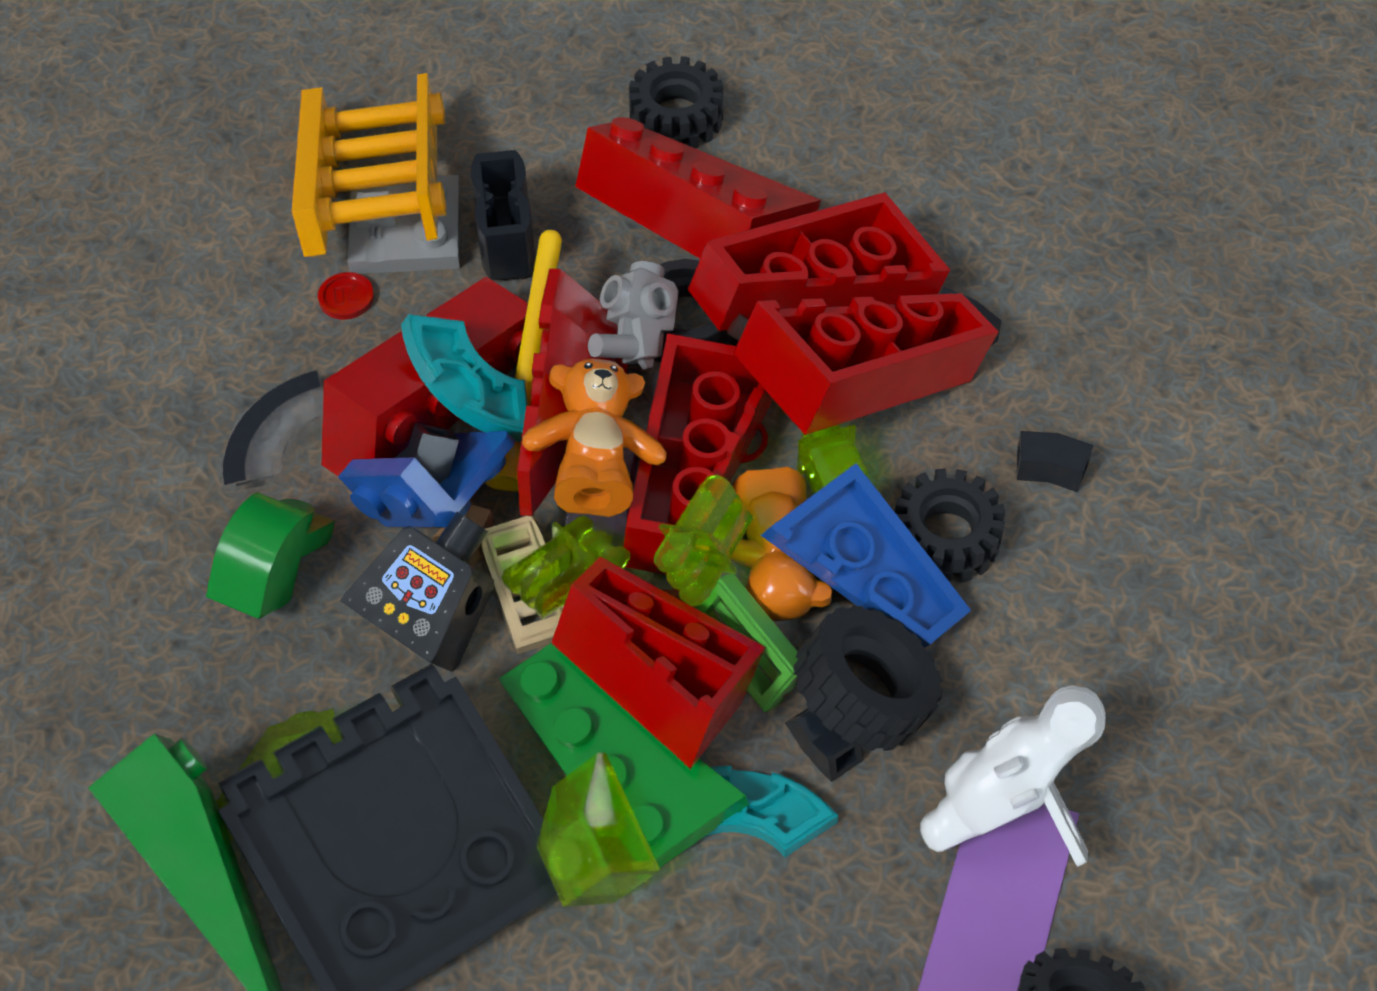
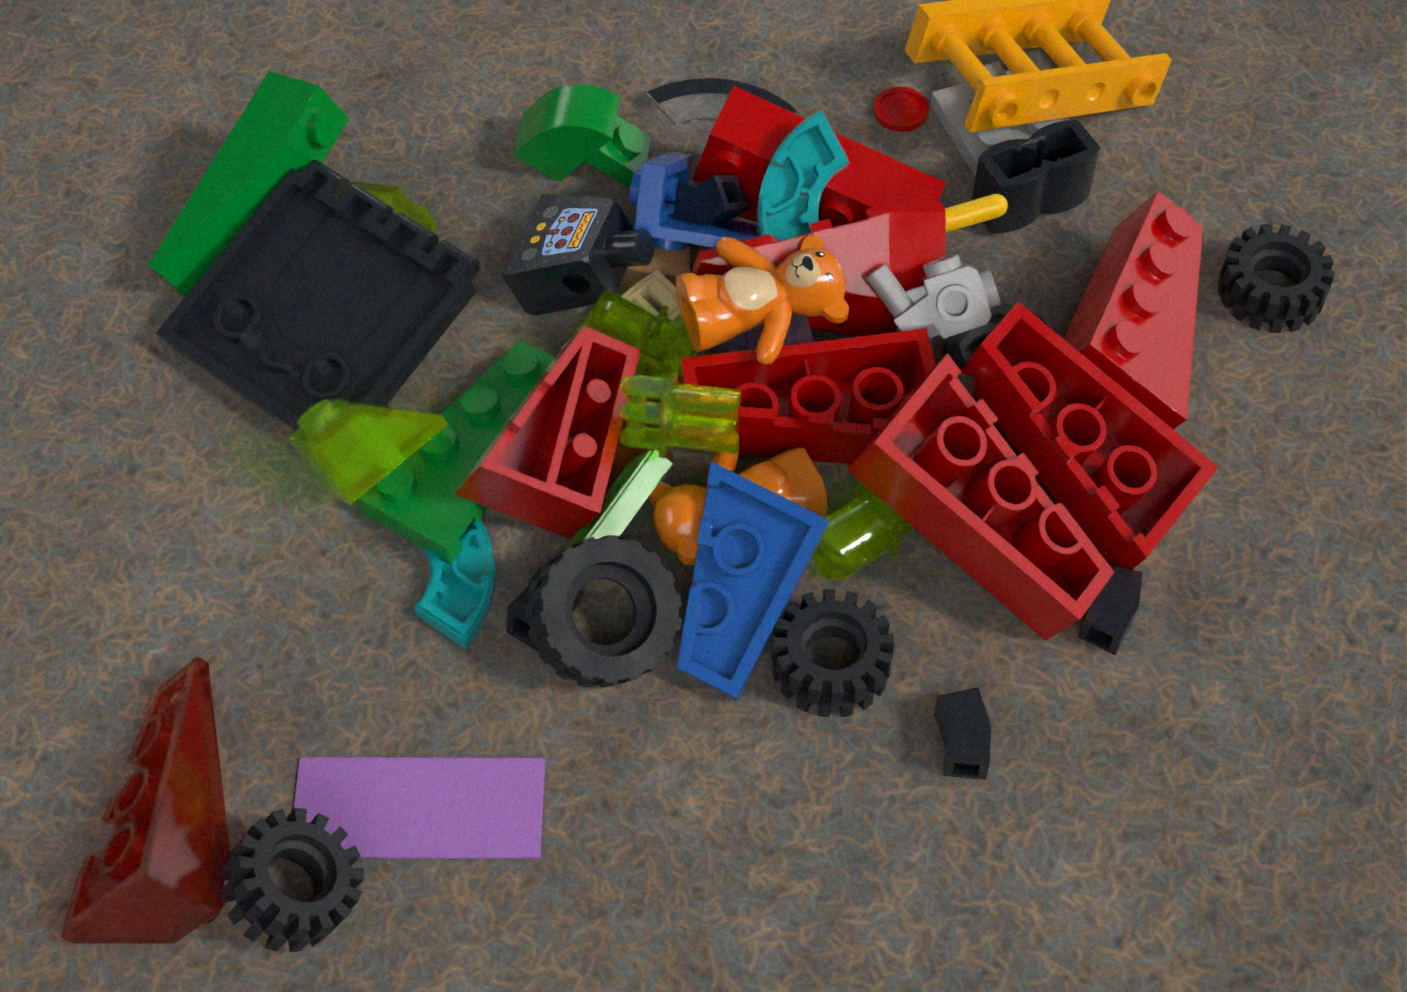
camera: 70 degrees right, 0 degrees up
(1018, 773) = (526, 772): white piece -> none

